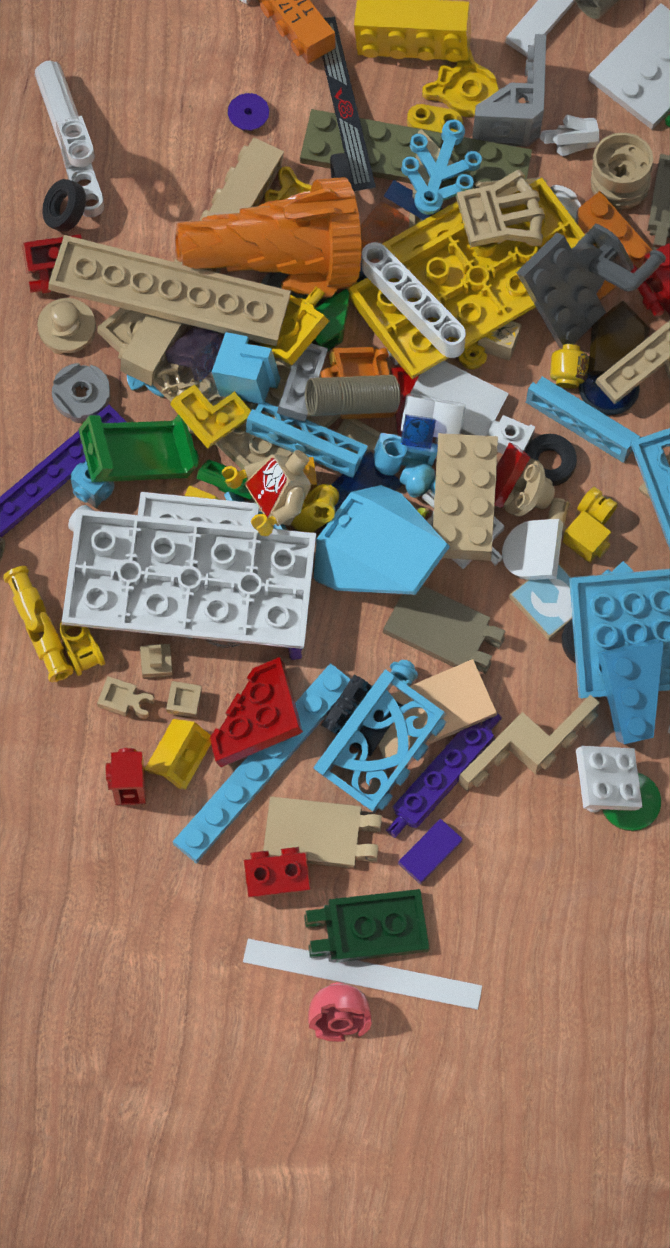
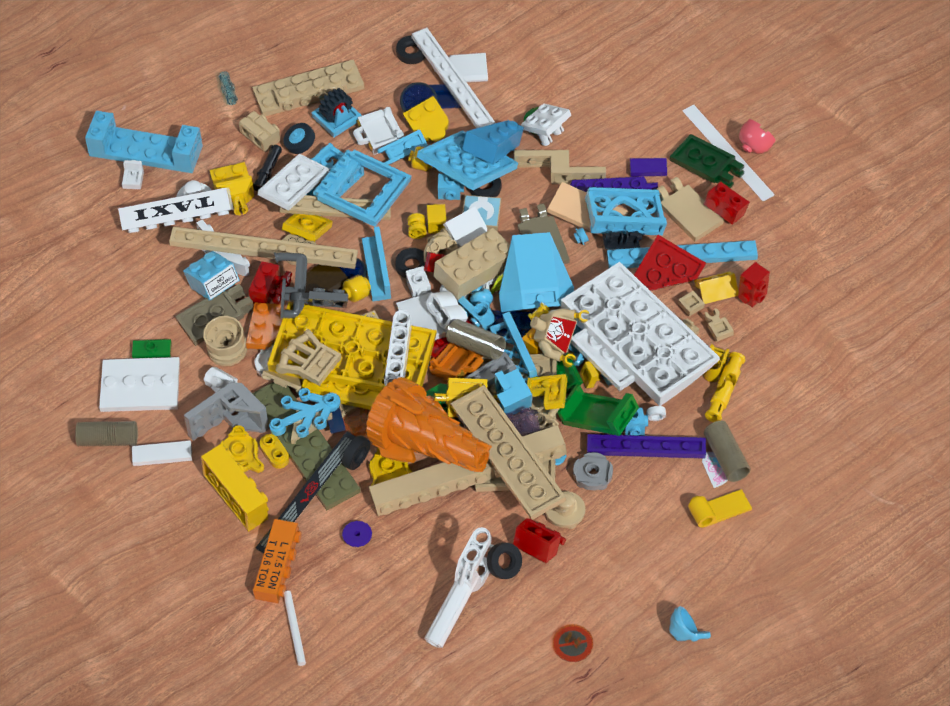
camera: 130 degrees left, 15 degrees down
(418, 431) = (463, 303): clear blue tile -> none

